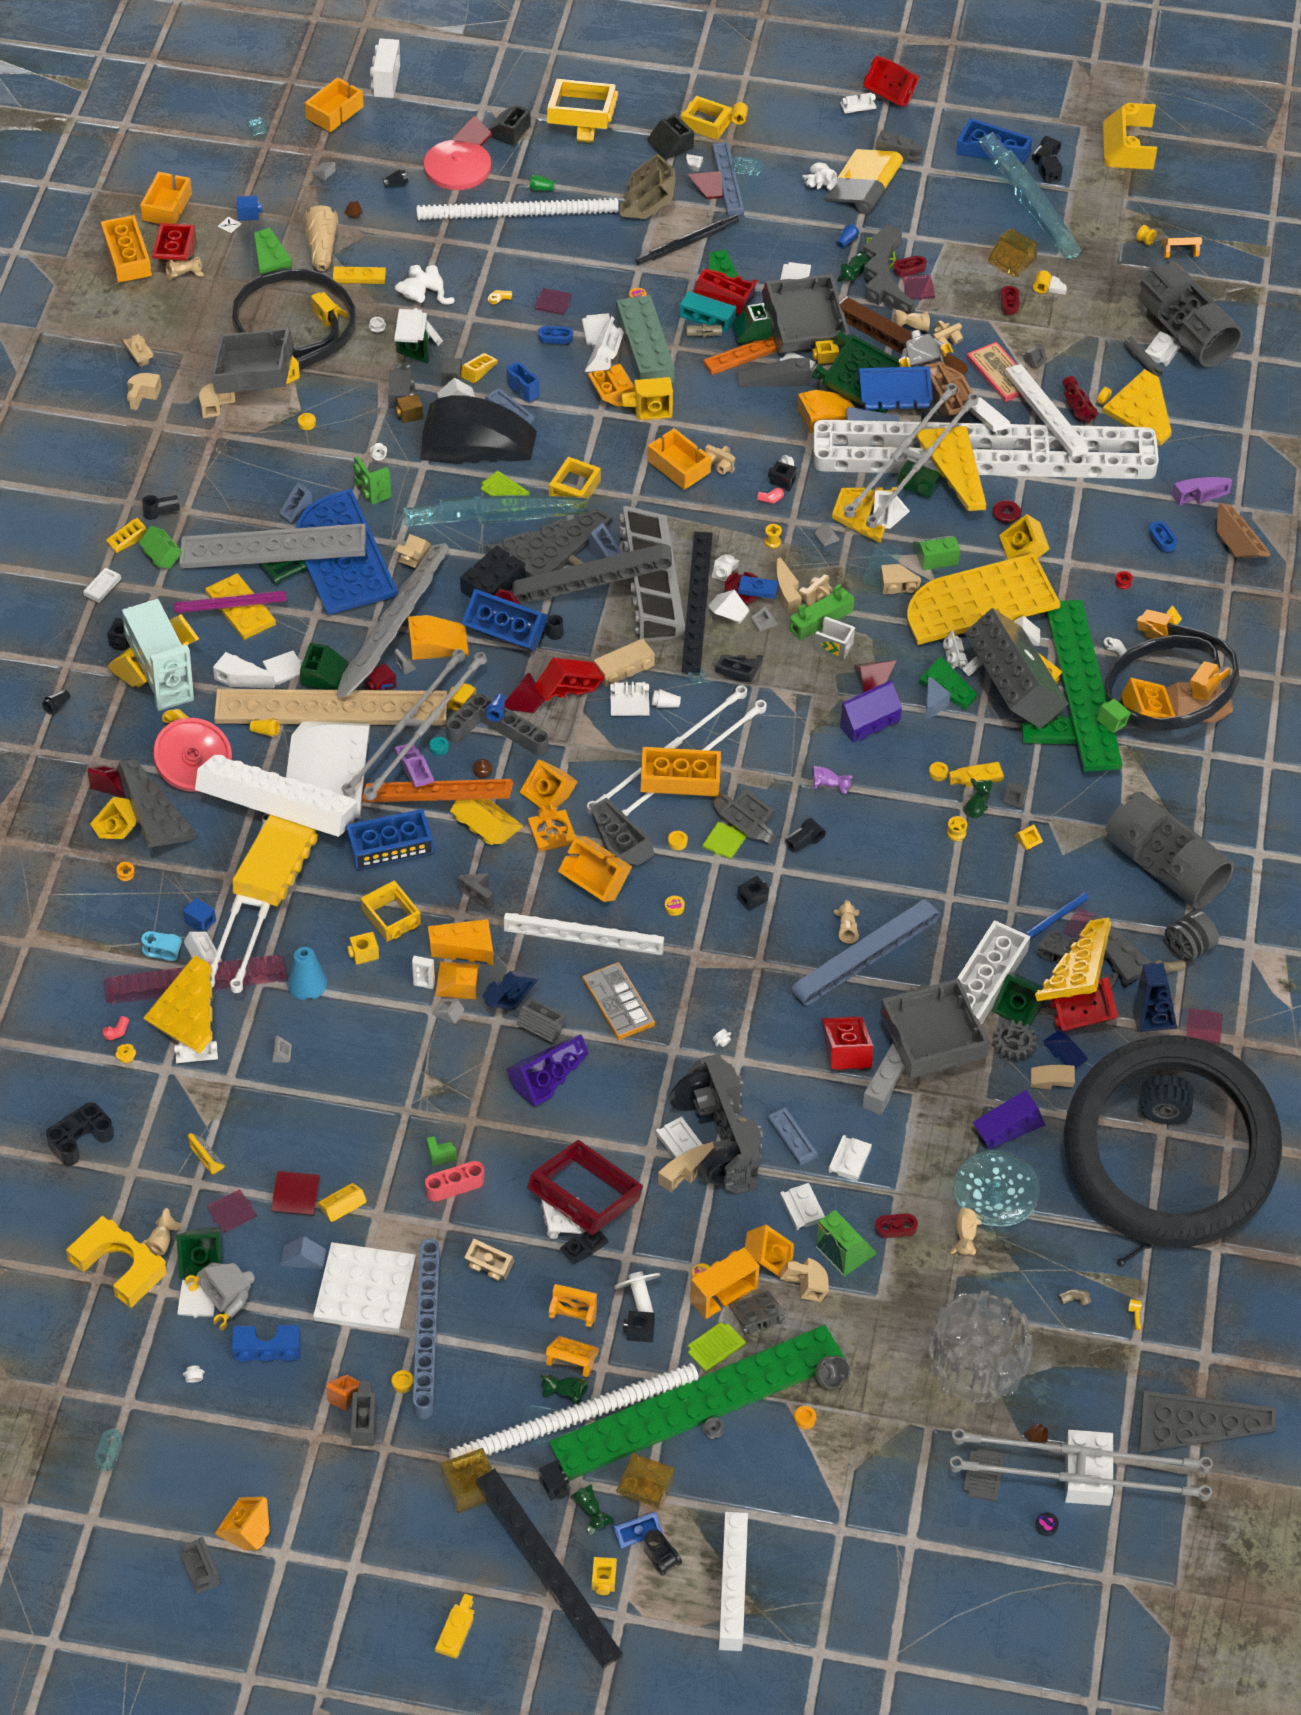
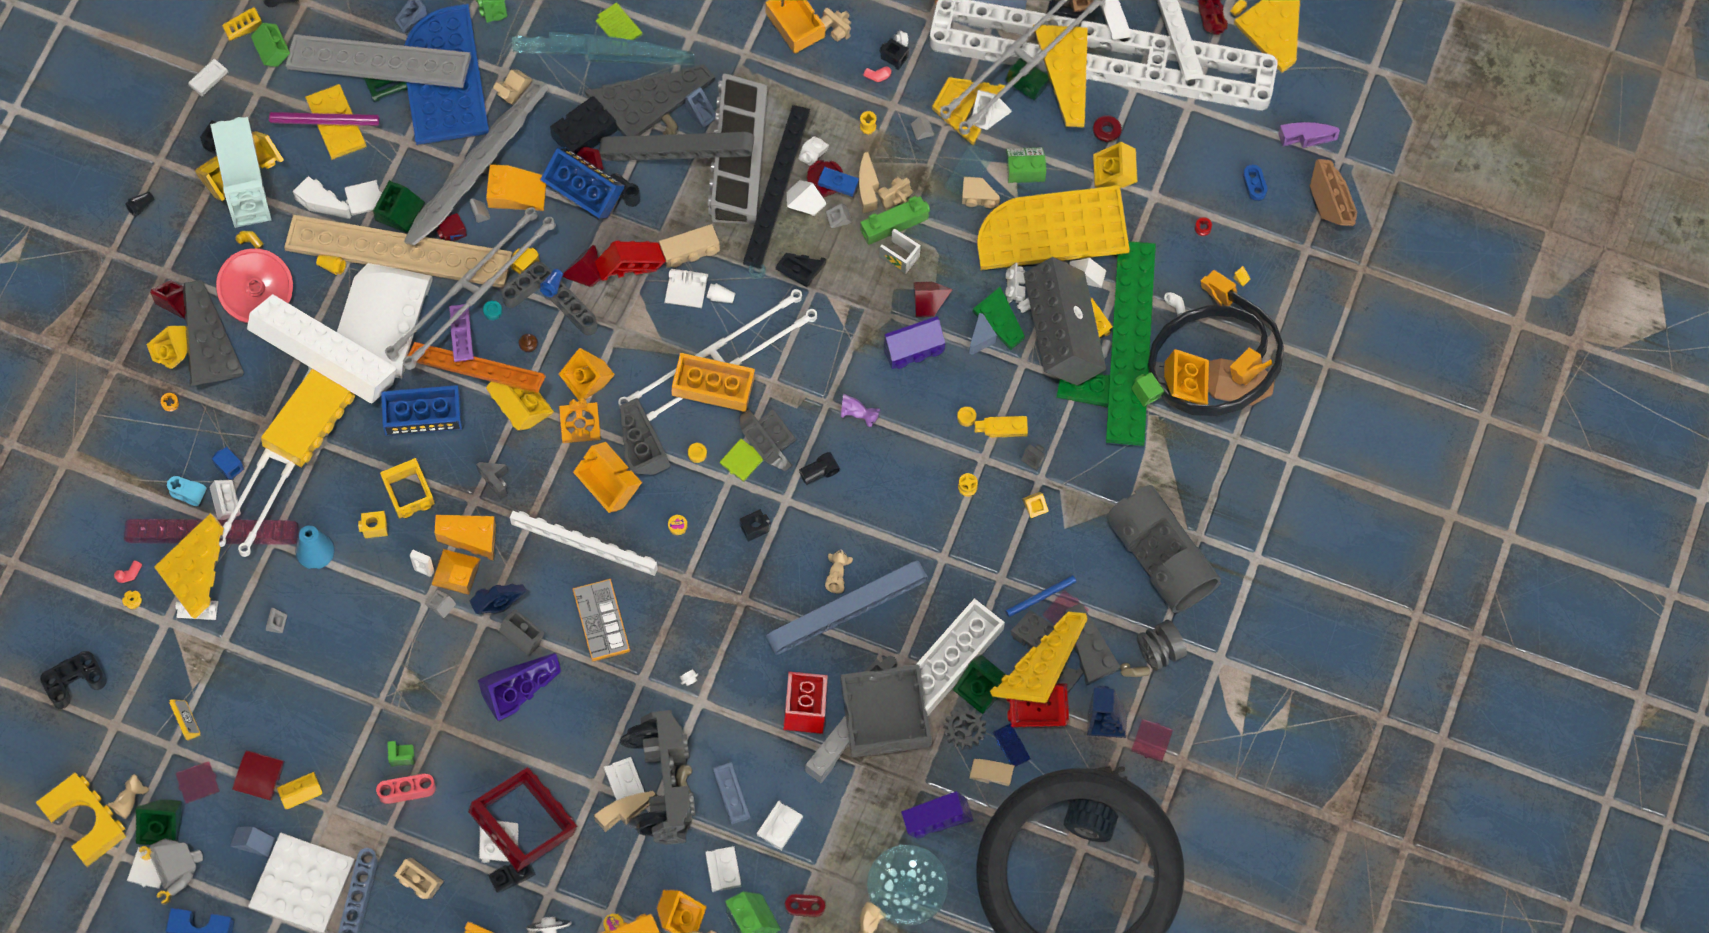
camera: 10 degrees right, 15 degrees up
(580, 468) = (676, 41): yellow window -> none
(977, 804) = (994, 461): dark green animal -> none

